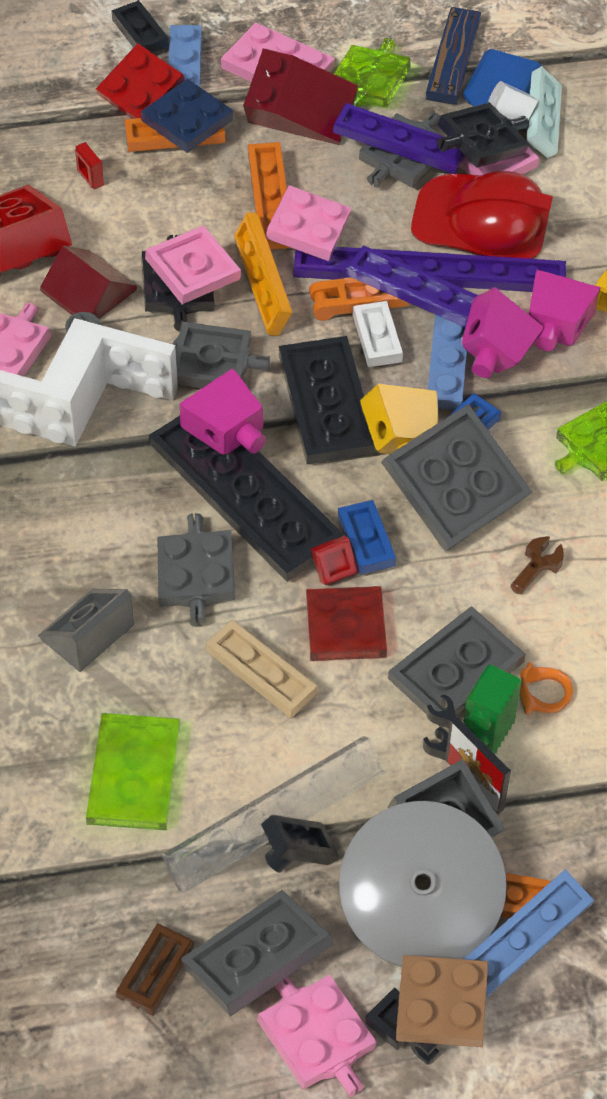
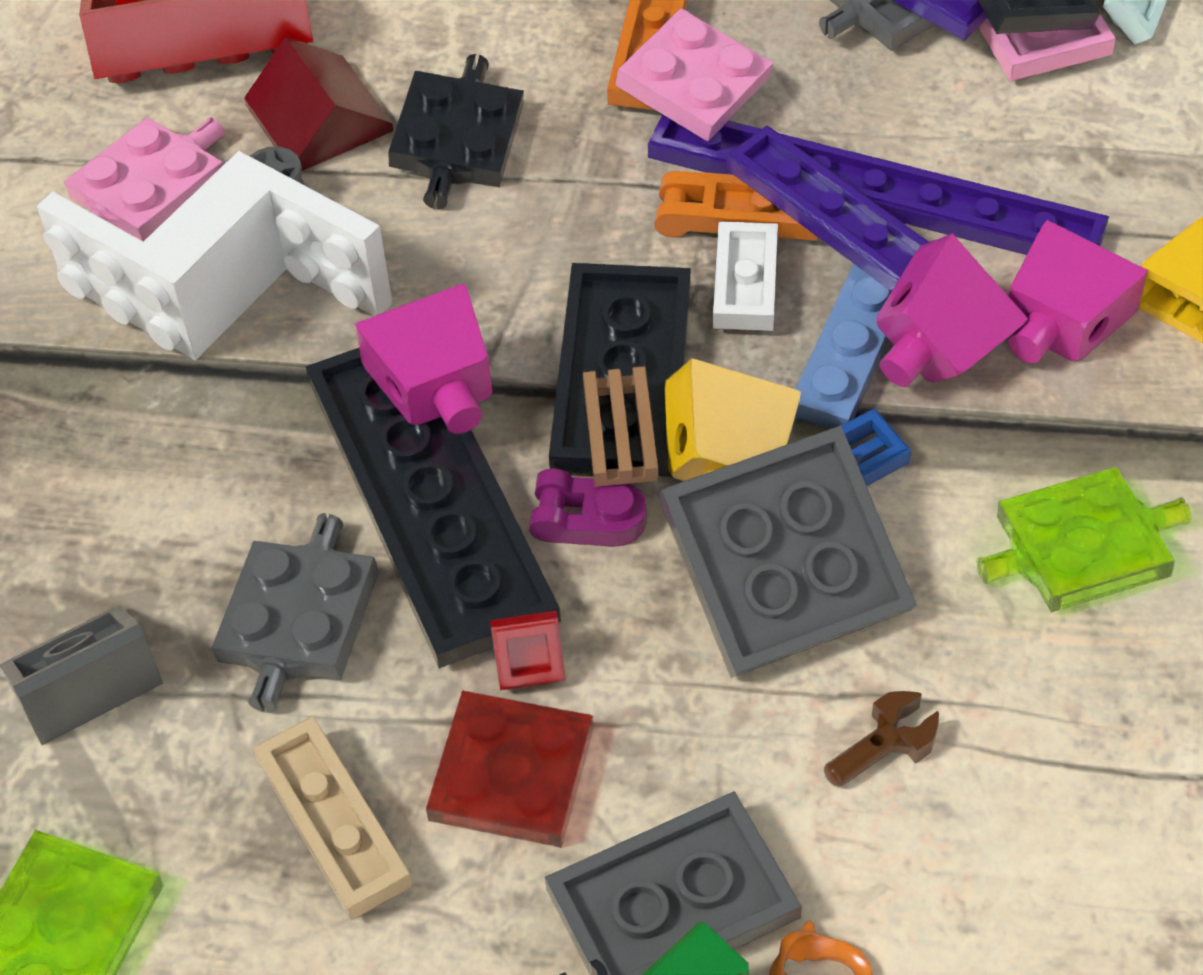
camera: 20 degrees right, 0 degrees up
(192, 264) = (478, 104): bright pink plate -> none
(210, 351) = (461, 245): dark grey plate -> none
(262, 274) = (591, 143): light orange tile -> none
(333, 409) = (616, 386): none -> medium nougat tile
(348, 478) = (609, 513): none -> magenta plate
(367, 537) = (599, 621): blue plate -> none
(483, 214) = (993, 114): red piece -> none

